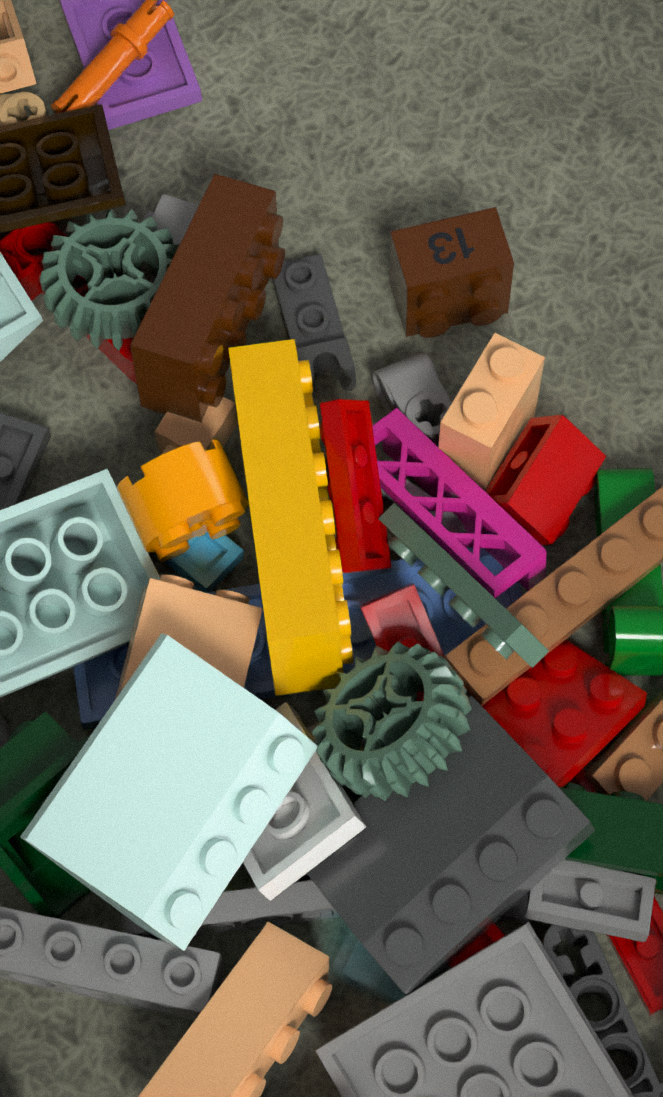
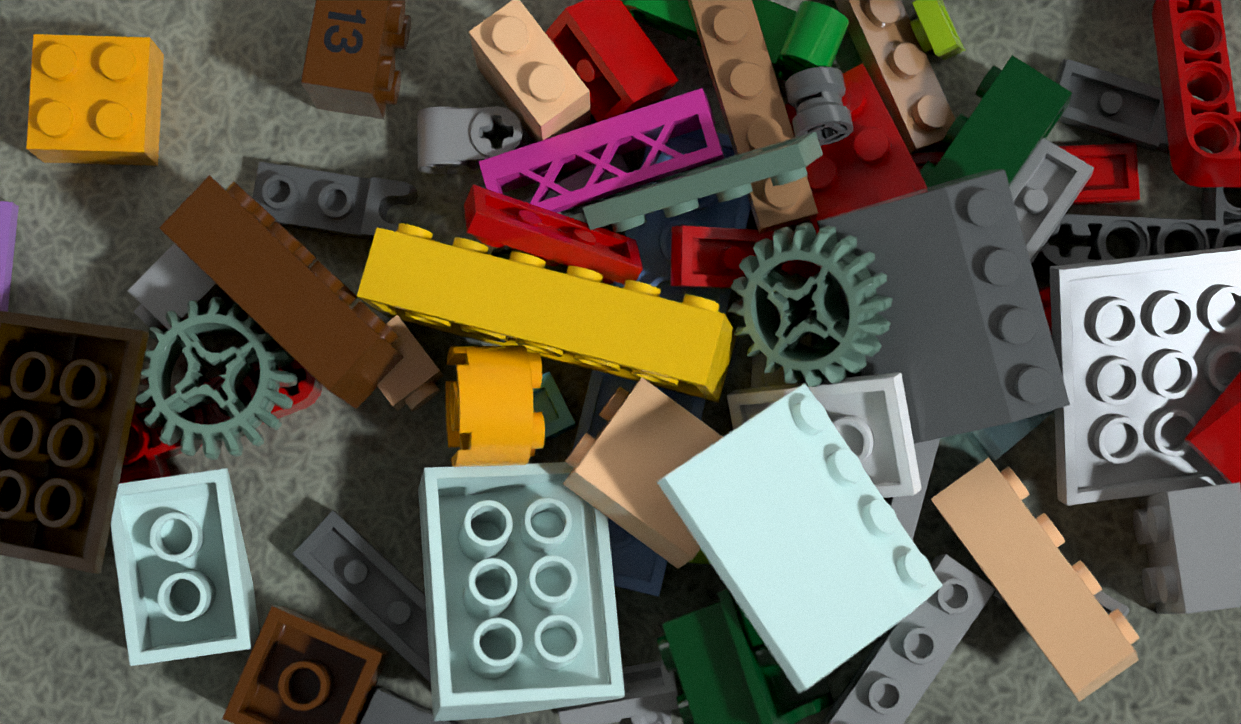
camera: 70 degrees left, 15 degrees up
(312, 112) = (95, 99): none -> light orange brick
(585, 658) = (819, 105): none -> dark grey wheel

